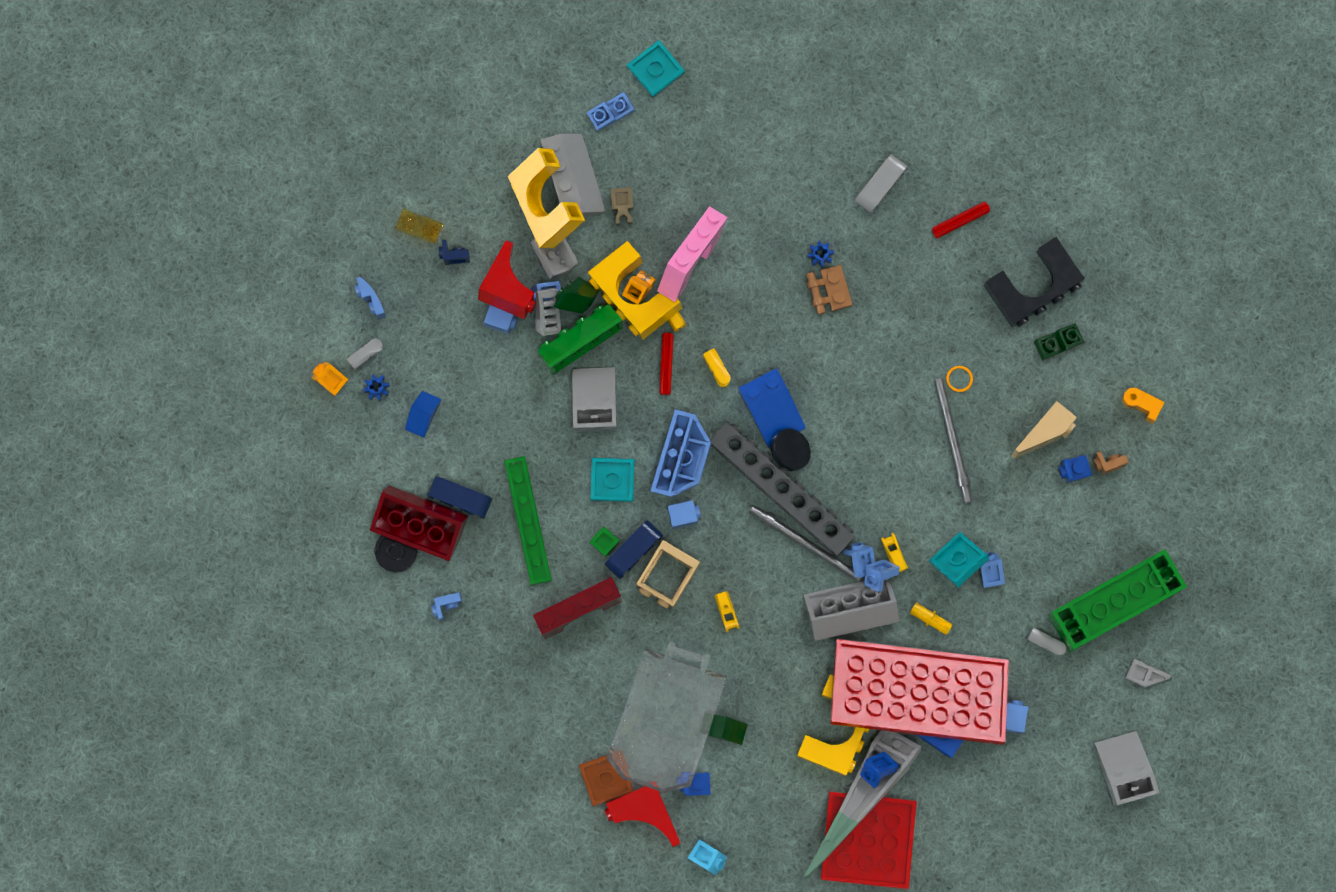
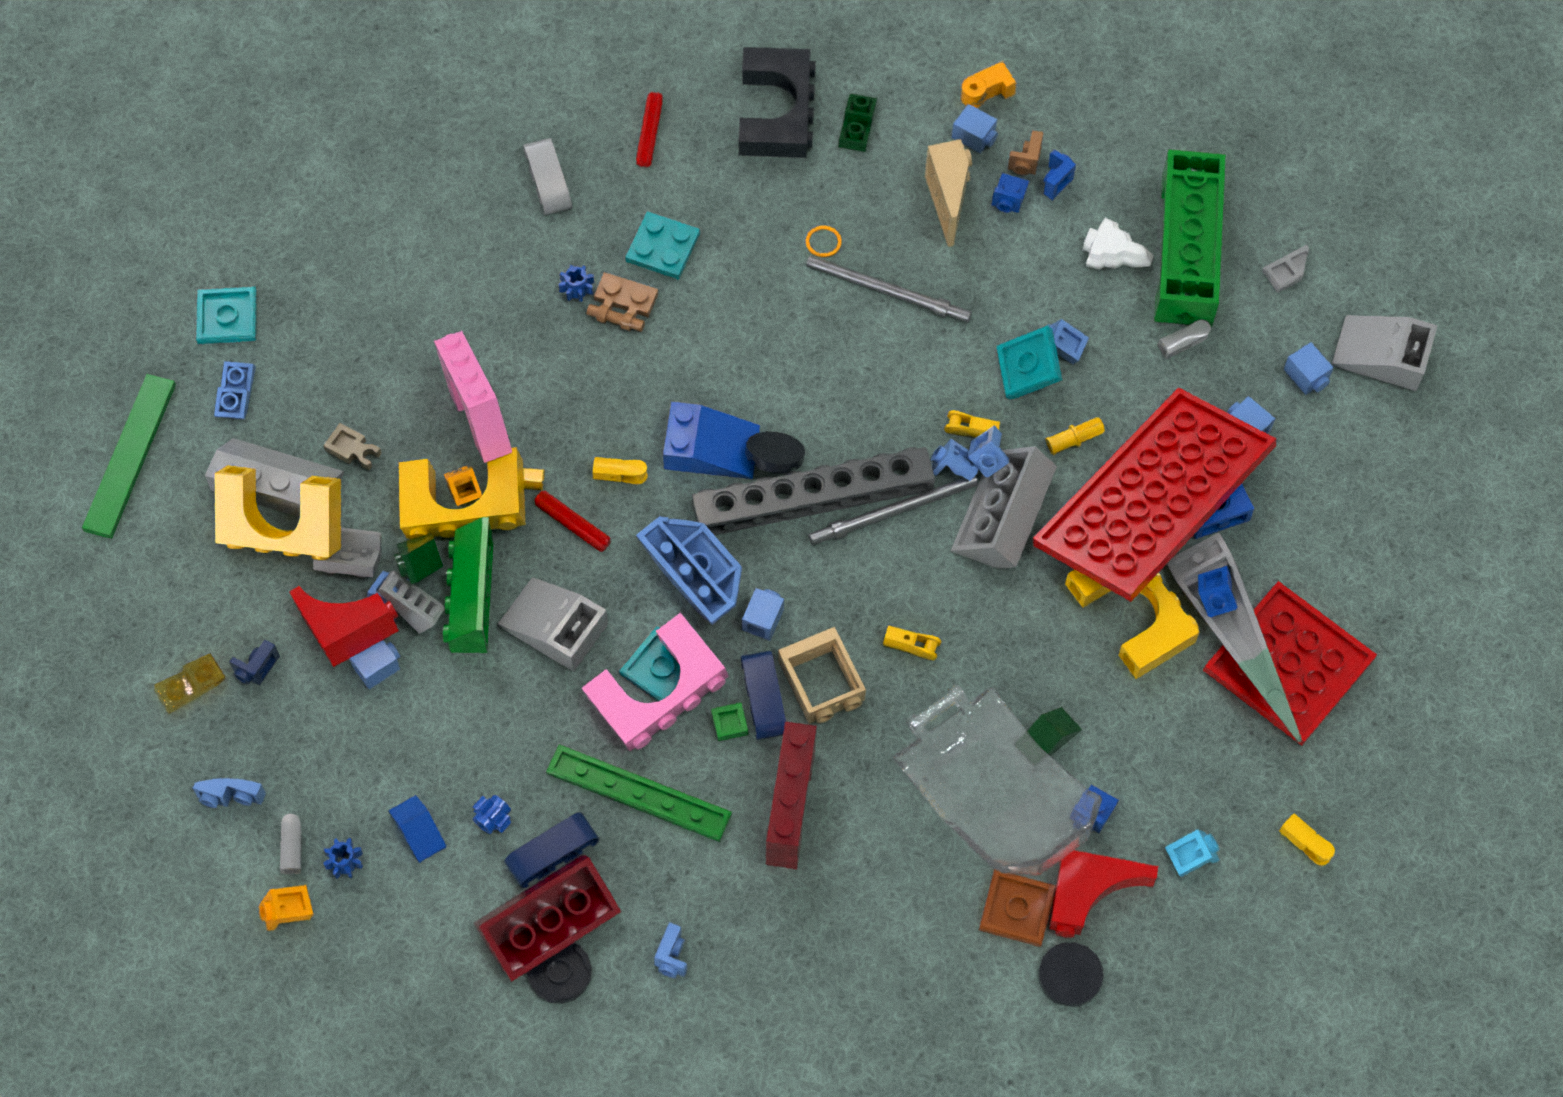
camera: 60 degrees left, 15 degrees down
(456, 449) = (491, 814): none -> blue gear
(529, 84) = (129, 456): none -> tile
(587, 833) = (1071, 974): none -> black tile
(618, 504) = (638, 721): none -> bright pink arch
(885, 285) = (662, 245): none -> teal plate
(1078, 731) = (1309, 369): none -> medium blue brick
(1080, 557) = (1114, 247): none -> white rock
(1104, 417) = (975, 129): none -> medium blue brick
(1104, 491) = (1060, 175): none -> blue bracket

